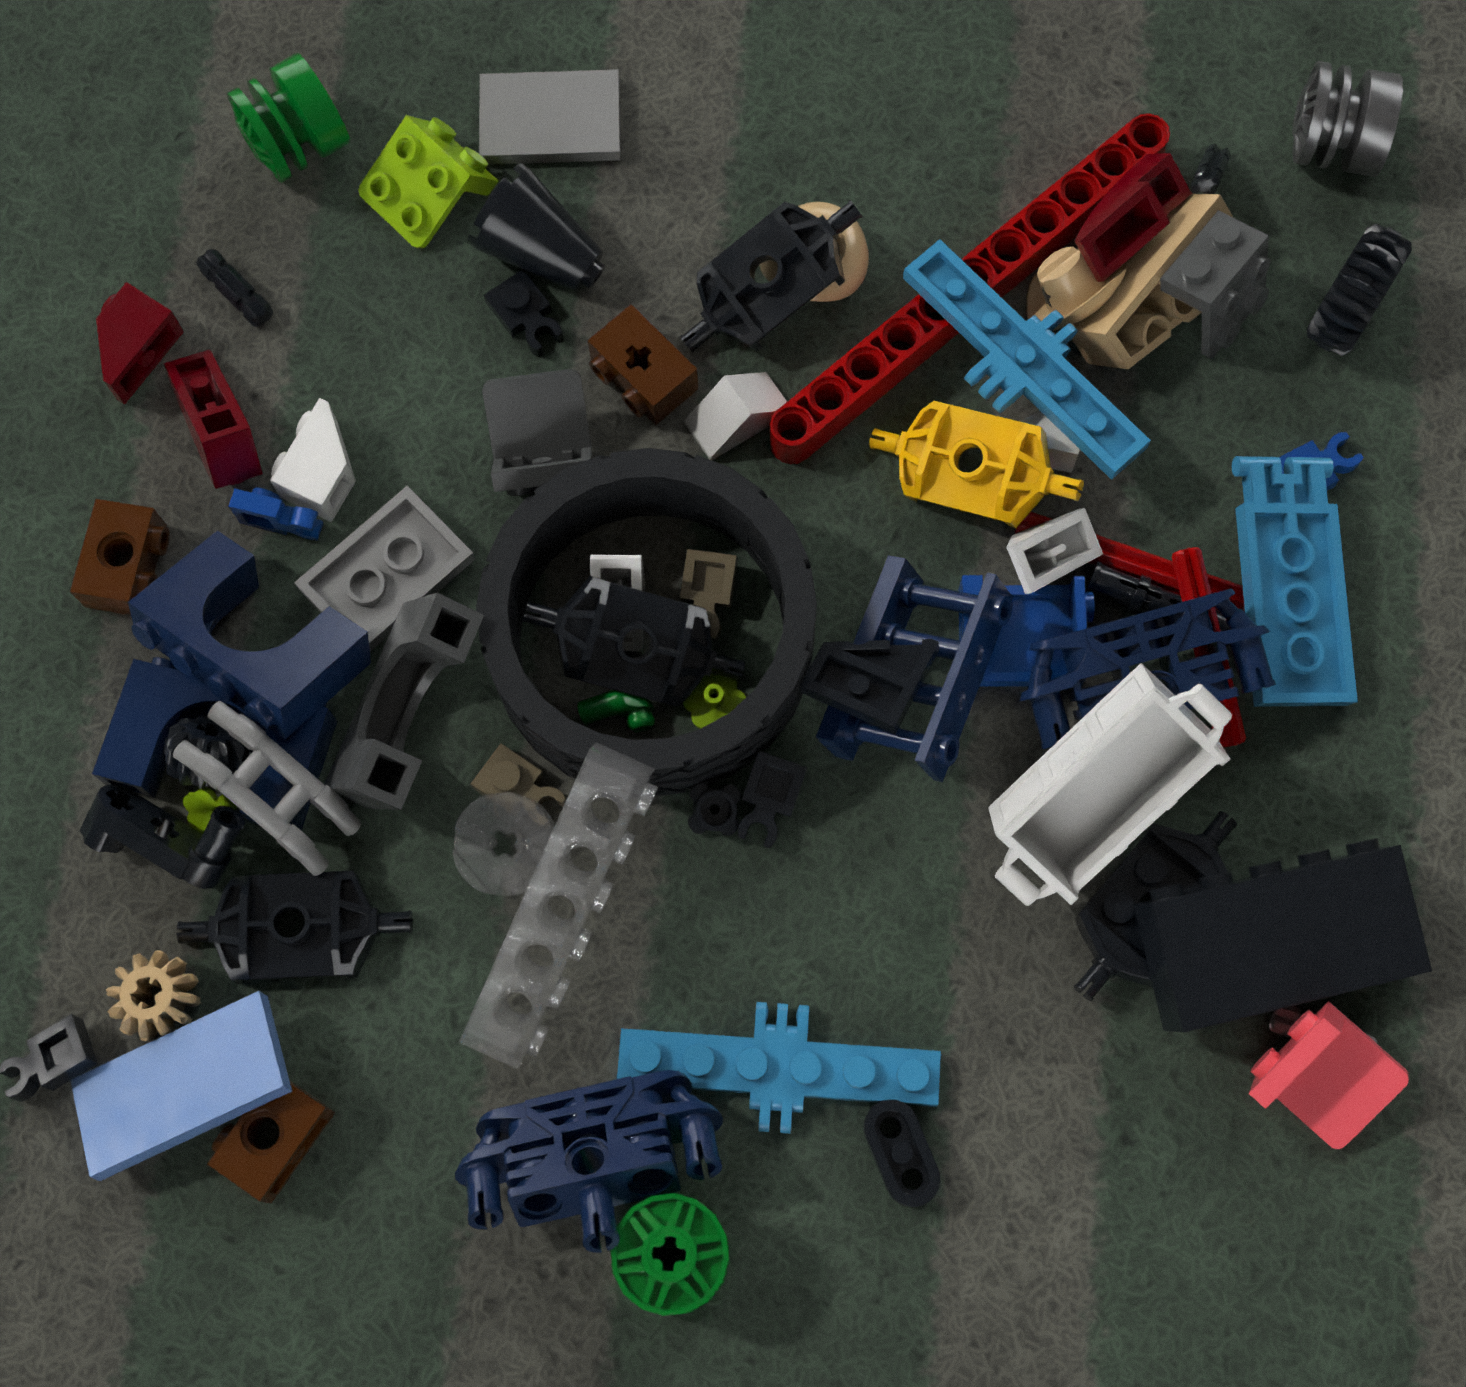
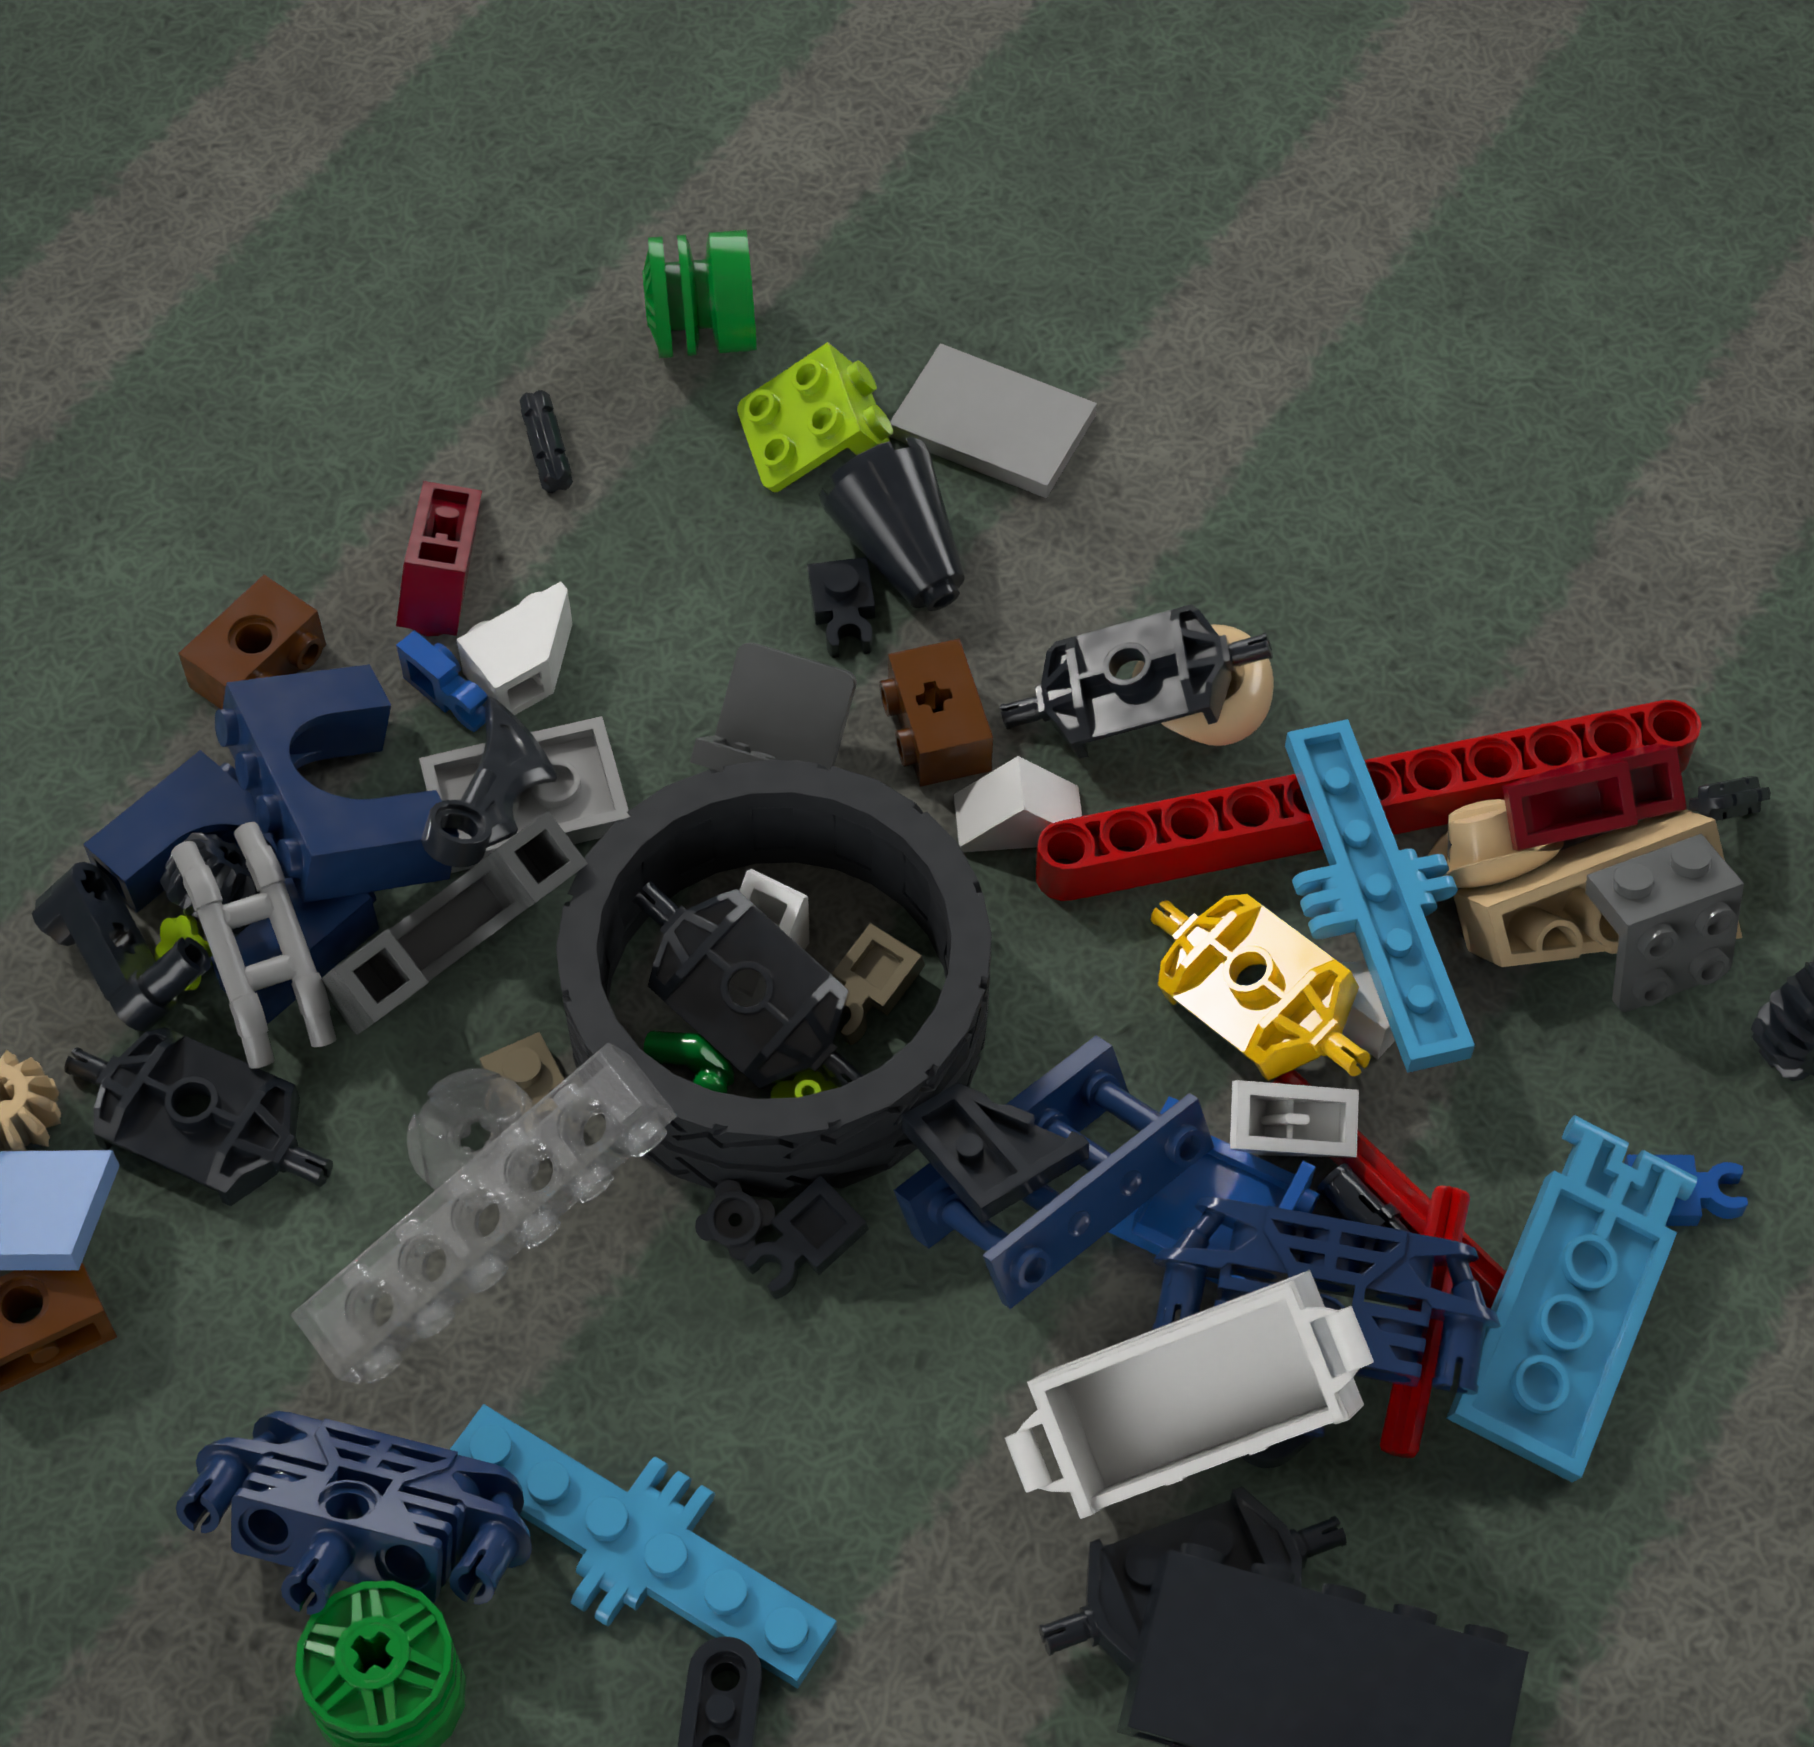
camera: 25 degrees right, 15 degrees down
(133, 339) = (405, 443): dark red slope -> none
(368, 561) = (485, 812): none -> black piece

